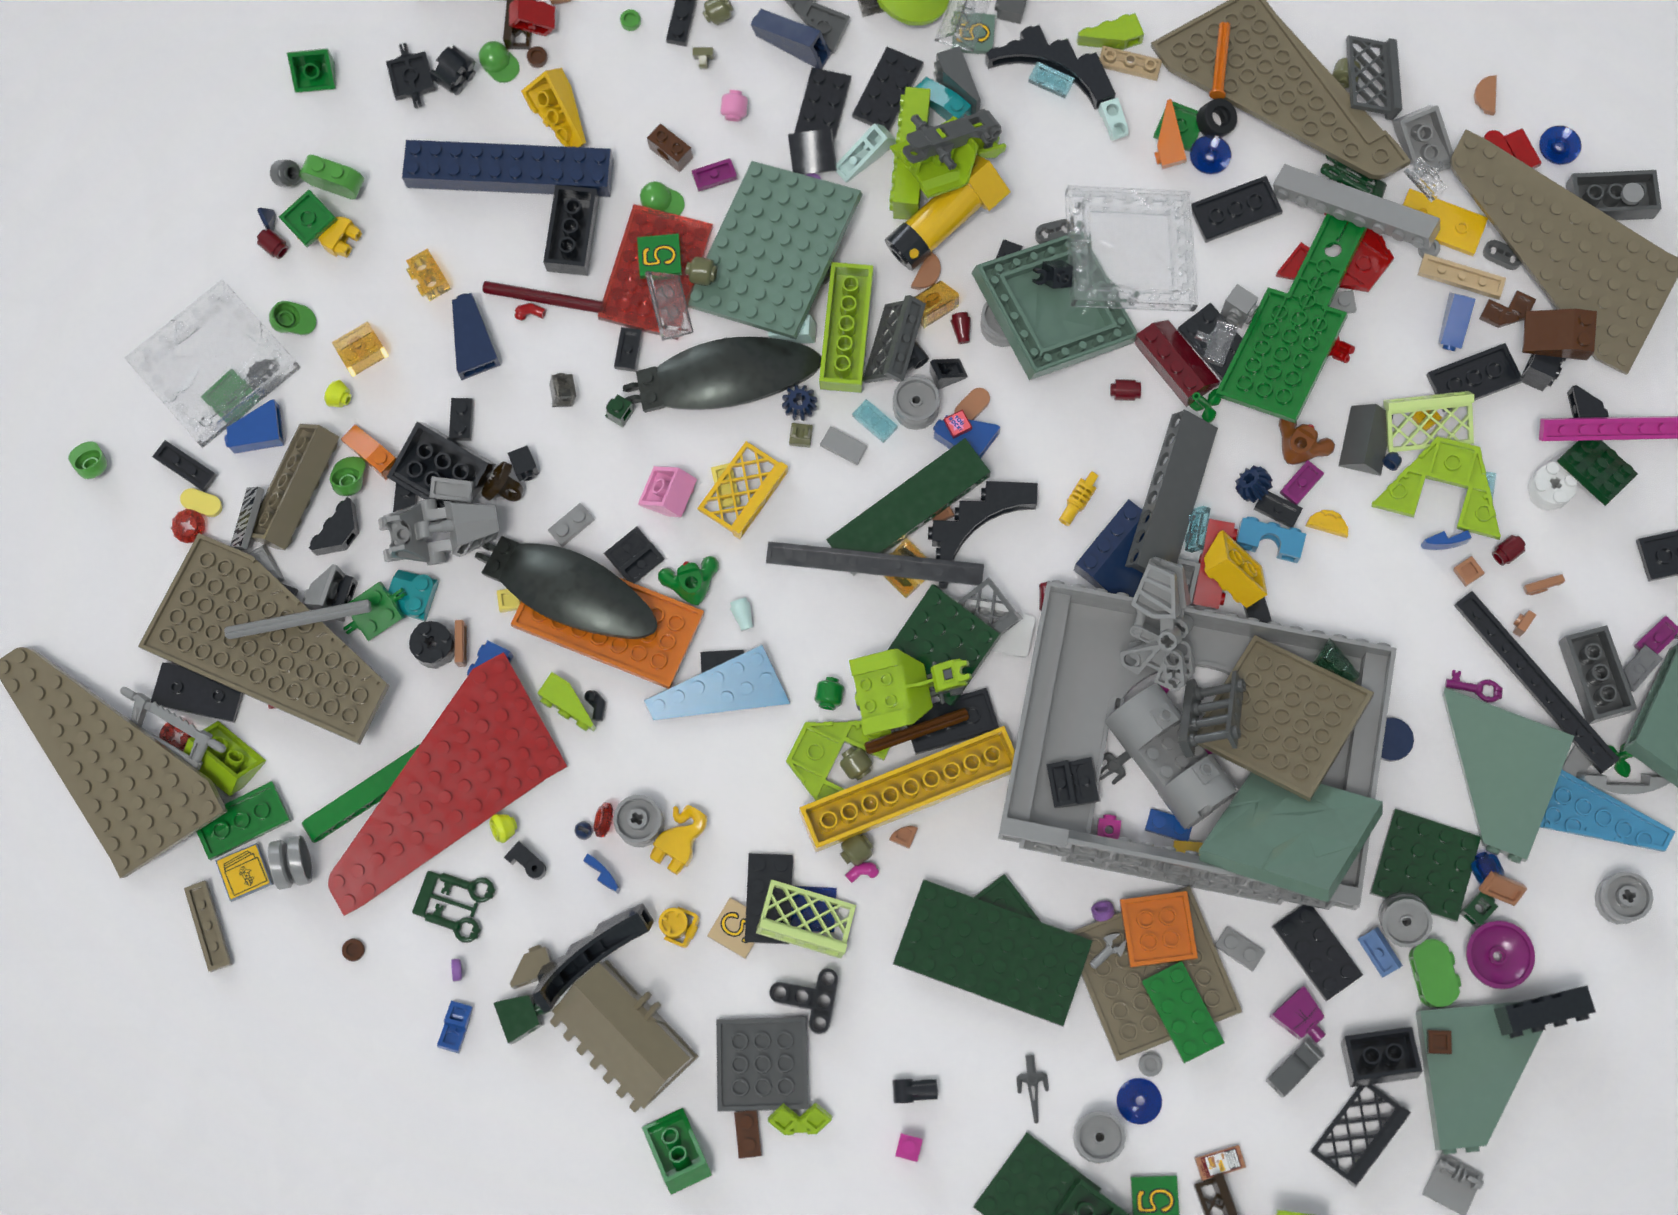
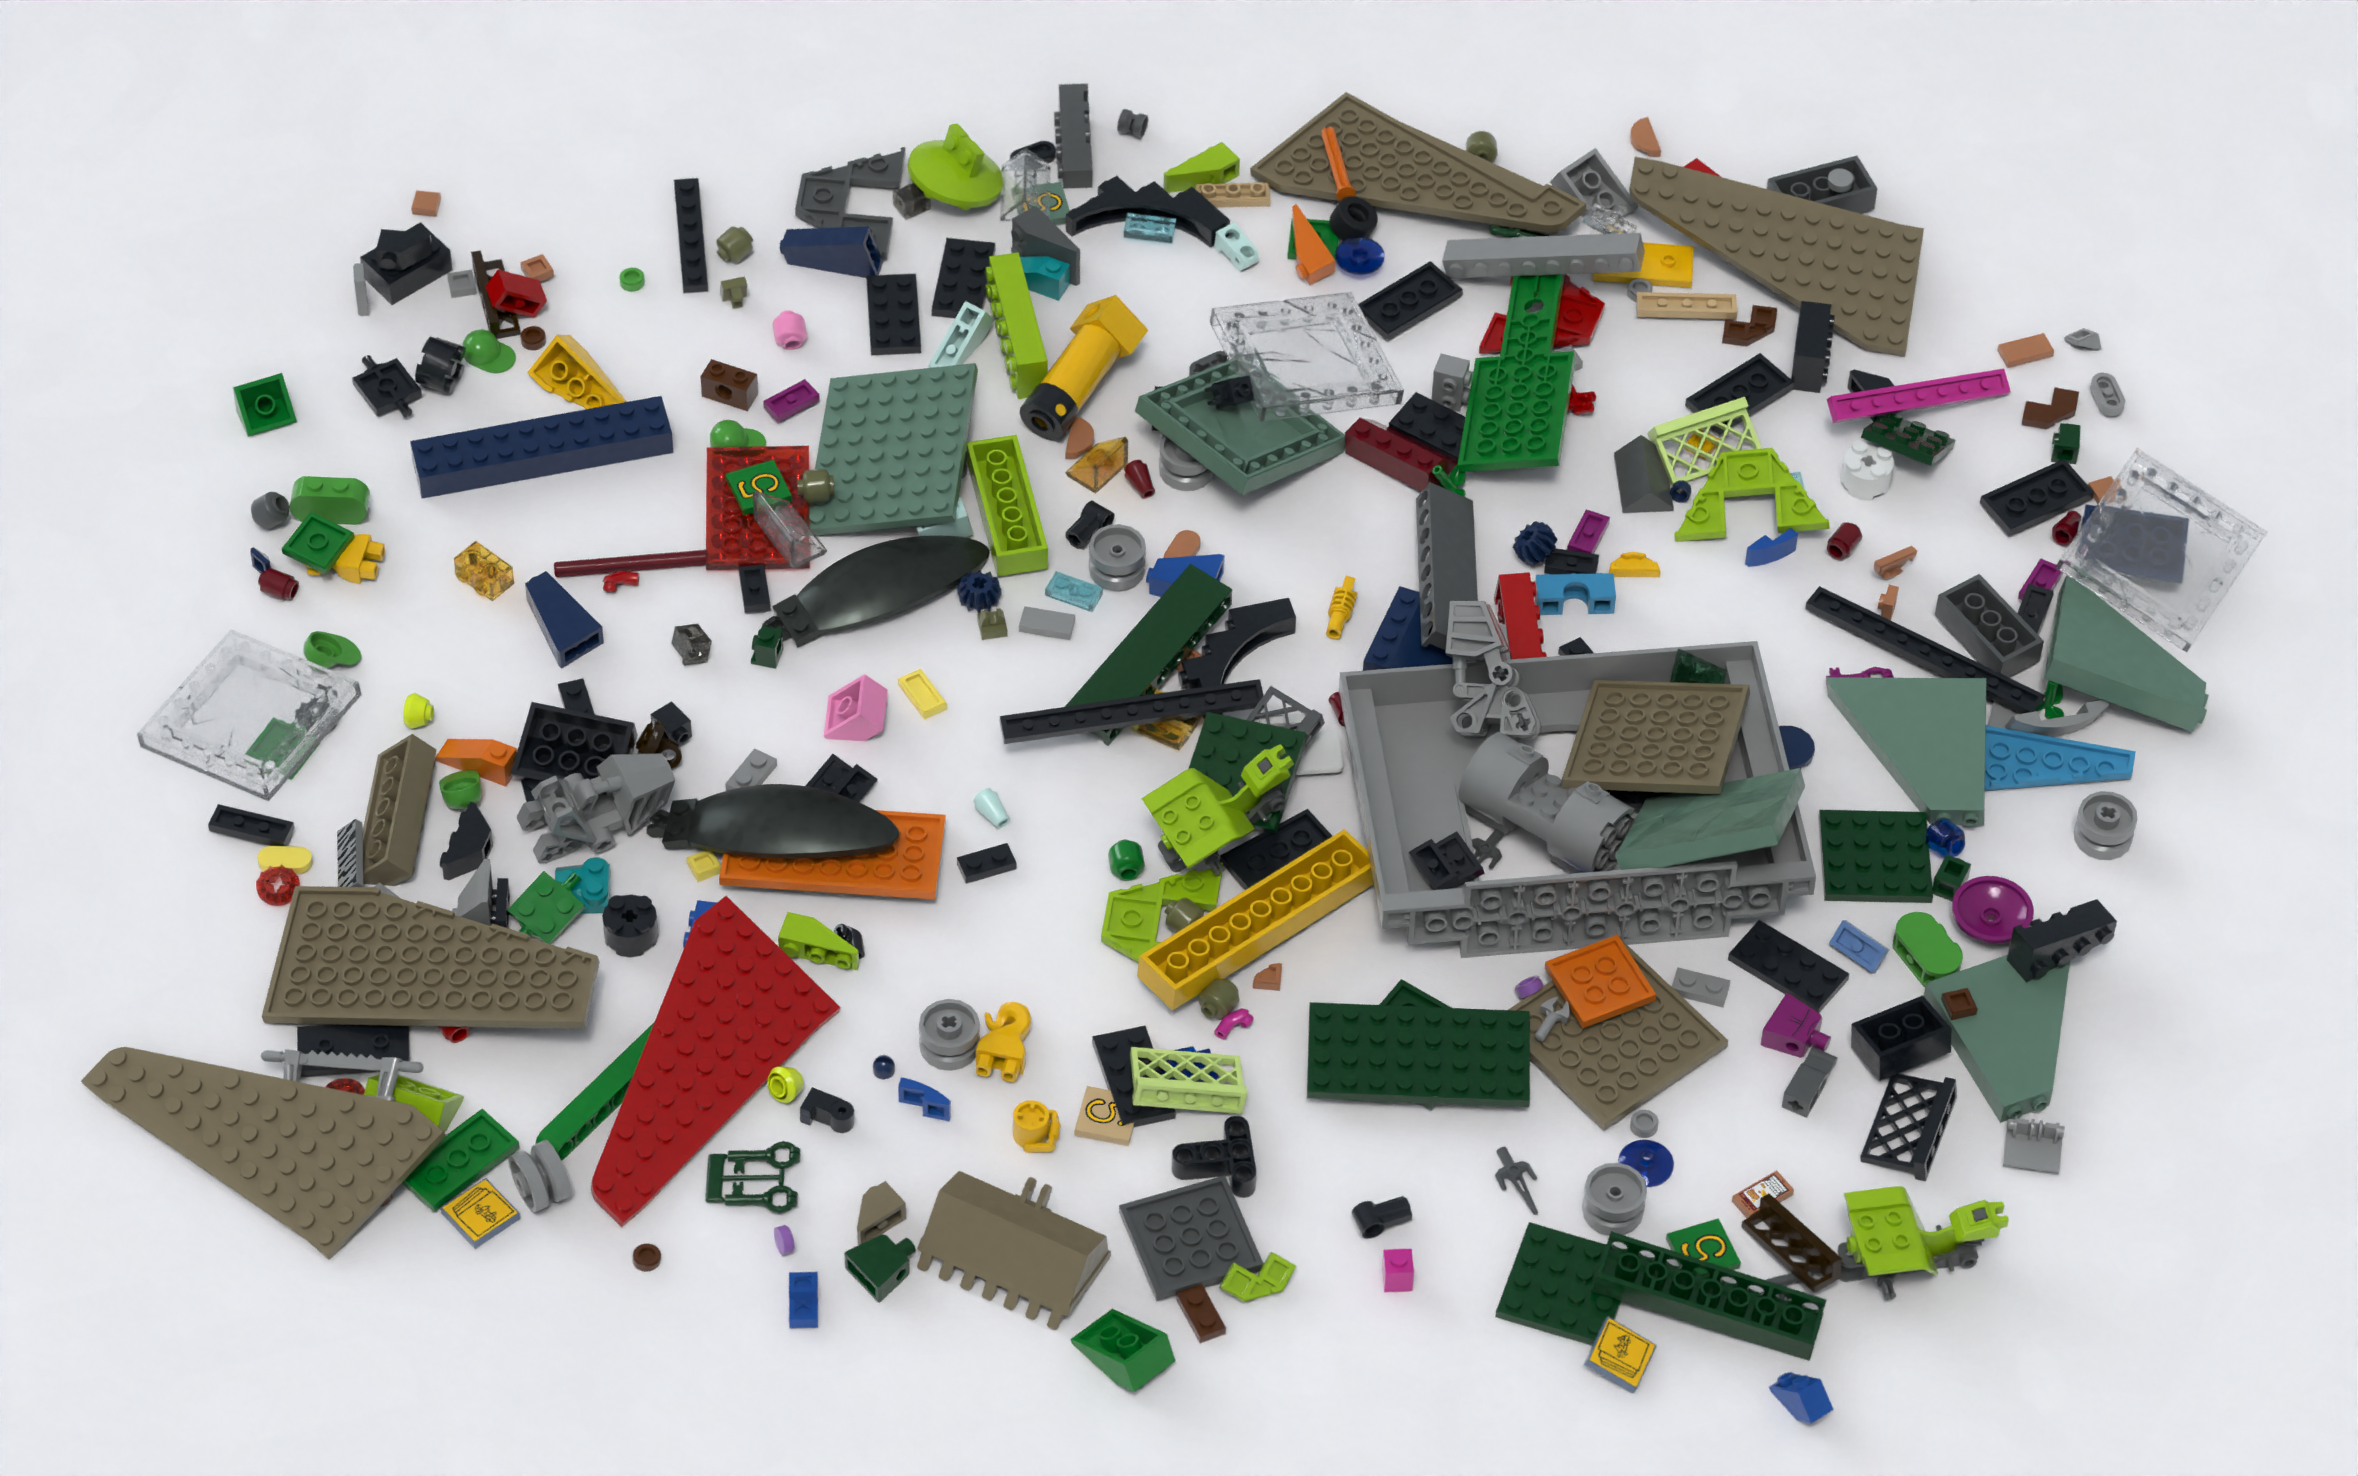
camera: 25 degrees left, 25 degrees down
(88, 460) = (129, 848): bright green cap -> none
(207, 926) = (456, 1276): dark tan plate -> none
(256, 430) = (329, 769): blue slope -> none
(298, 619) = (460, 926): light grey axle -> none
(360, 349) = (428, 662): clear yellow slope -> none
(452, 489) = (588, 760): light grey tile -> none
(460, 643) = (664, 917): nougat tile -> none
(571, 230) = (643, 487): black brick -> none
(582, 955) = (948, 1161): black arch -> none
(603, 819) = (906, 1043): clear red gear -> none
(691, 581) = (919, 789): green head -> none
(733, 685) = (1003, 881): wing -> none
(760, 495) = (965, 699): yellow fence -> none
(812, 151) = (900, 348): black slope -> none
(903, 339) = (1078, 503): dark grey fence -> none
(916, 731) = (1244, 865): reddish brown axle -> none
(946, 153) = (1066, 291): piece -> none
(946, 372) = (1141, 521): black slope -> none
(957, 424) = (1174, 561): tile -> none
(1125, 390) = (1353, 493): dark red brick -> none
(1182, 1012) = (1660, 1055): green plate -> none
(1193, 708) = (1577, 745): dark grey fence -> none
(1197, 529) = (1489, 589): clear light blue plate -> none
(1217, 342) = (1440, 421): clear plate -> none
(1235, 570) = (1547, 618): yellow slope -> none
(1301, 443) = (1572, 494): dark orange head -> none
(1388, 78) = (1527, 136): dark grey fence -> none
(1402, 906) = (1876, 886): light grey wheel -> none
(1456, 321) = (1697, 342): slope -> none
(1468, 571) = (1808, 571): nougat plate -> none
(1502, 255) = (1723, 277): dark grey beam -> none
(1502, 888) = (1969, 847): nougat tile -> none
(1560, 333) = (1816, 313): reddish brown slope -> none
(1564, 138) = (1744, 162): clear blue dish -> none

